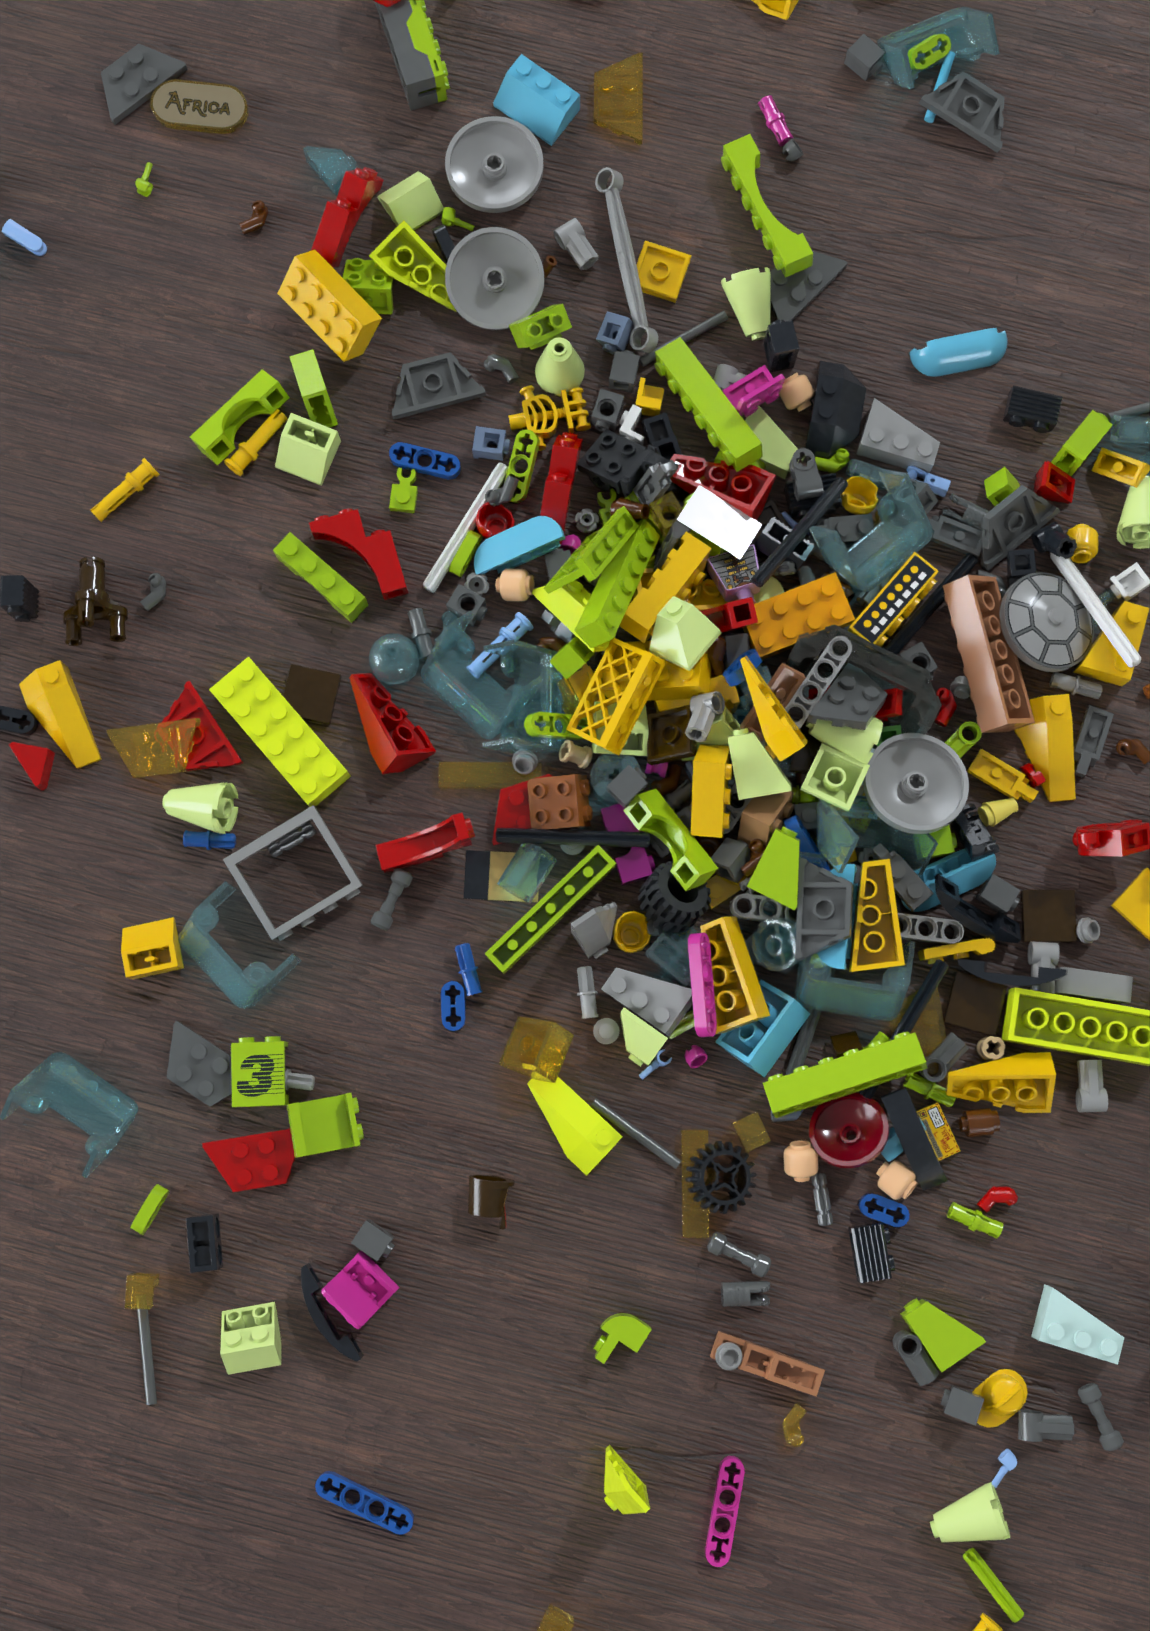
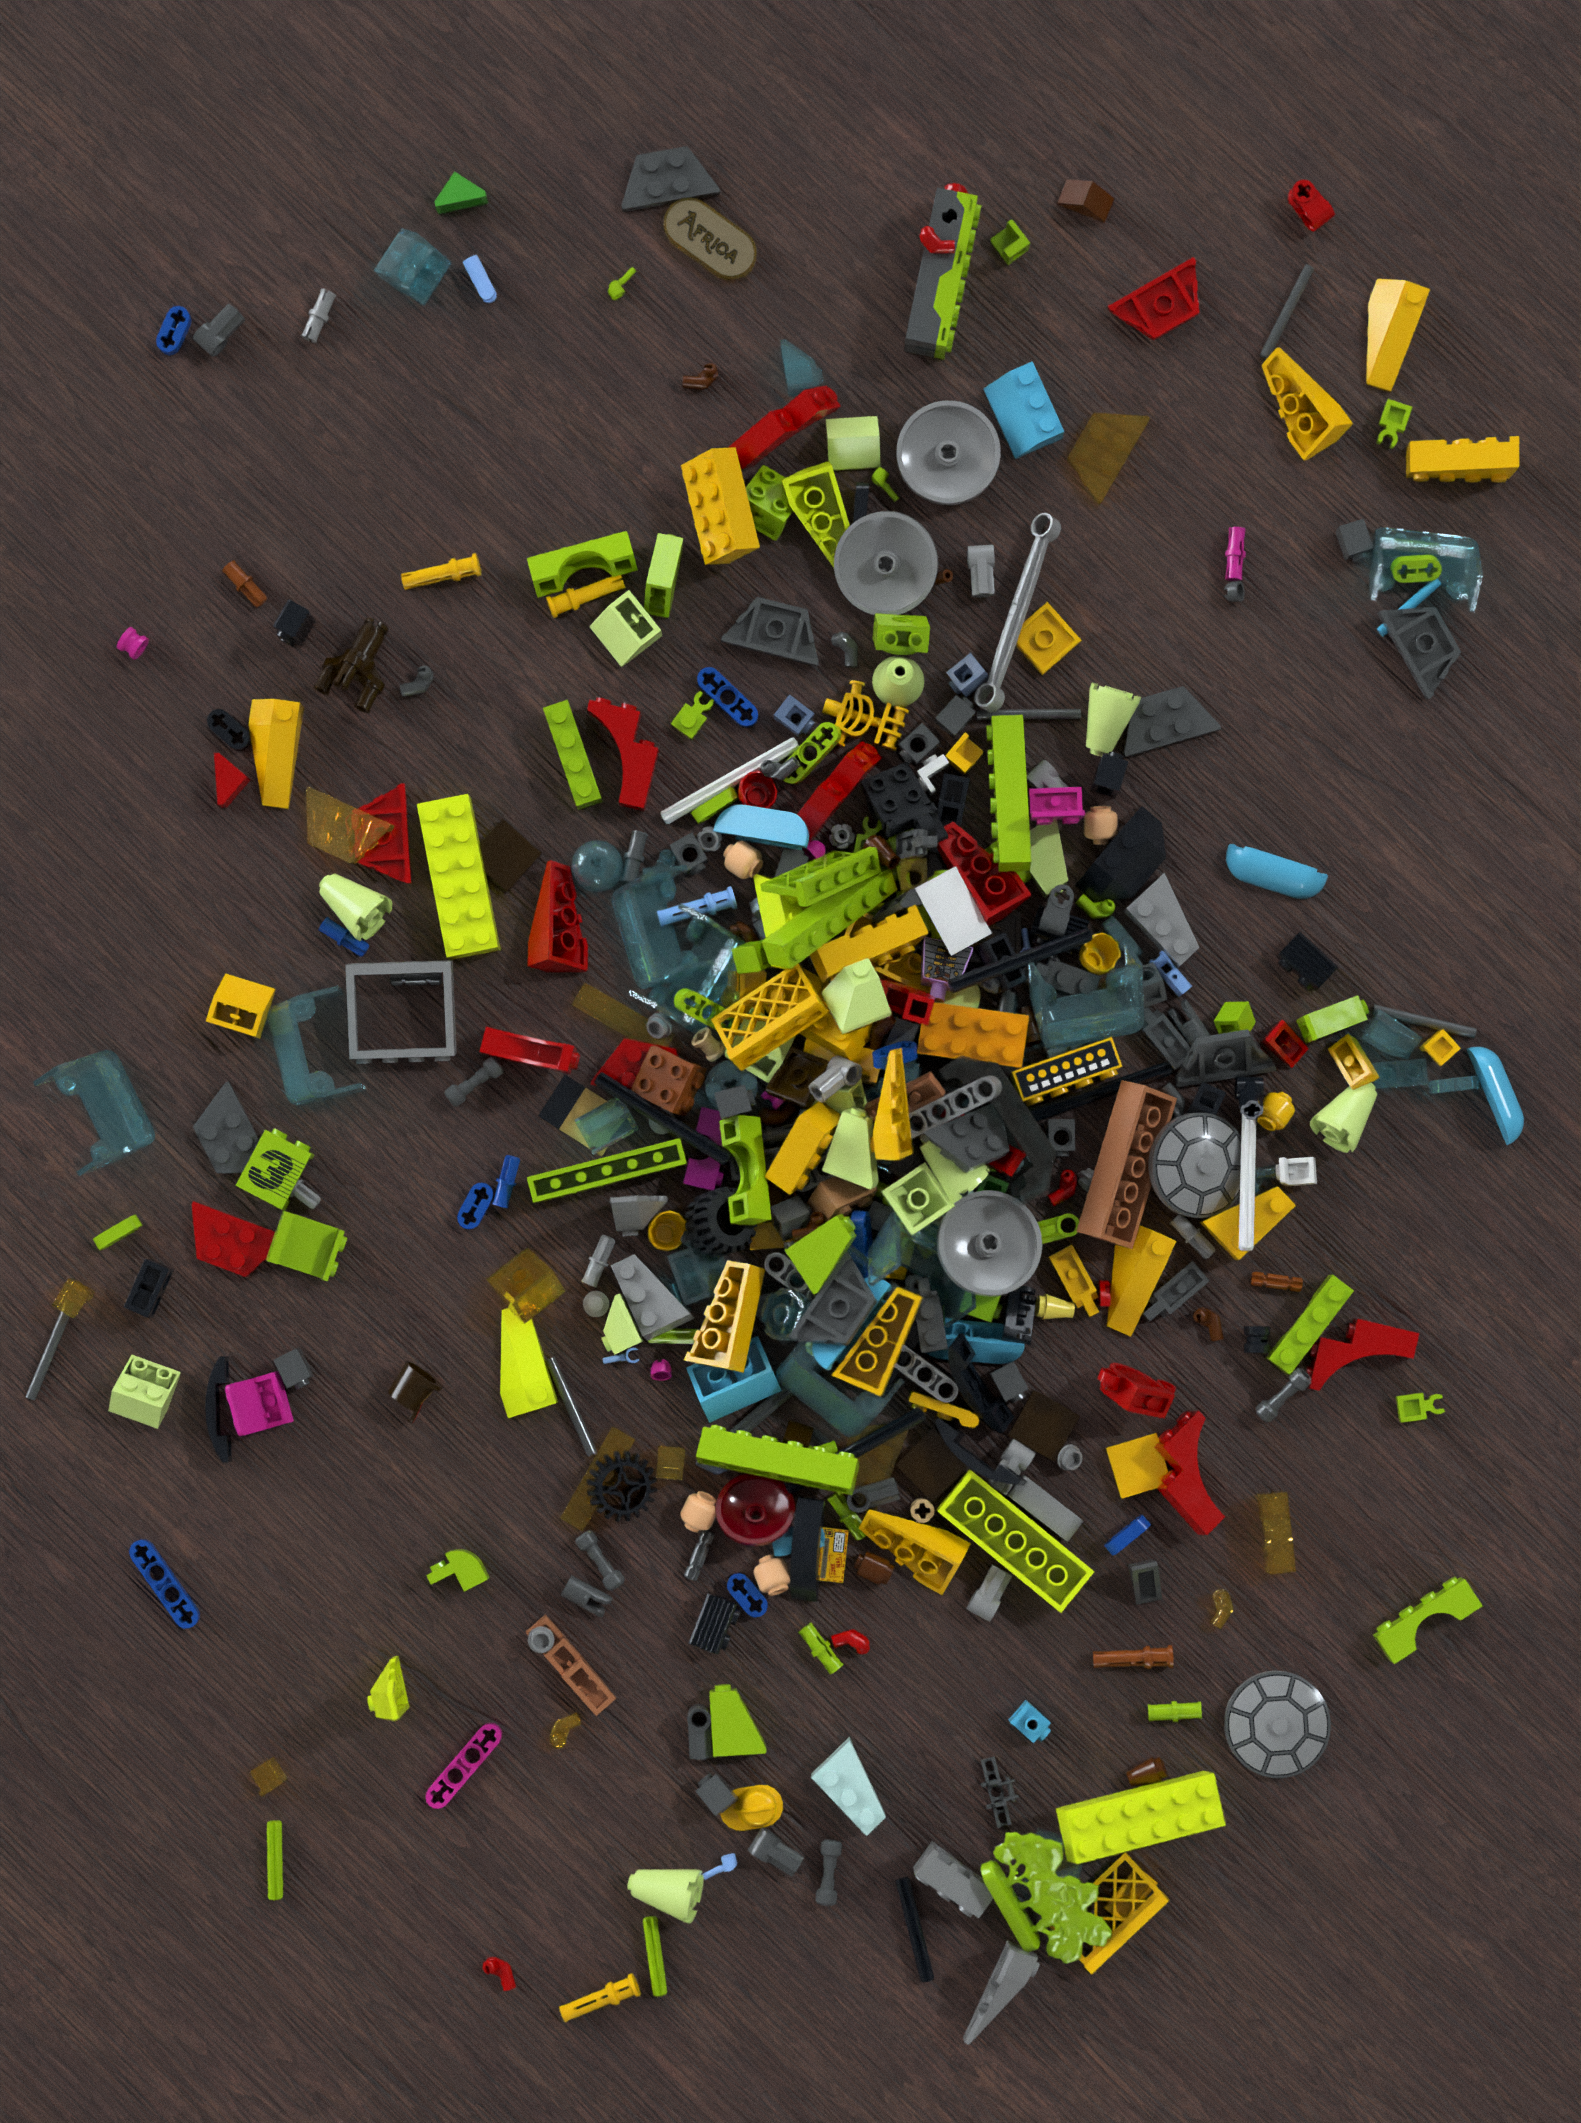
camera: 30 degrees right, 5 degrees up
(702, 985) = (698, 1312): dark pink beam -> none
(789, 249) = (1171, 690): lime arch -> none

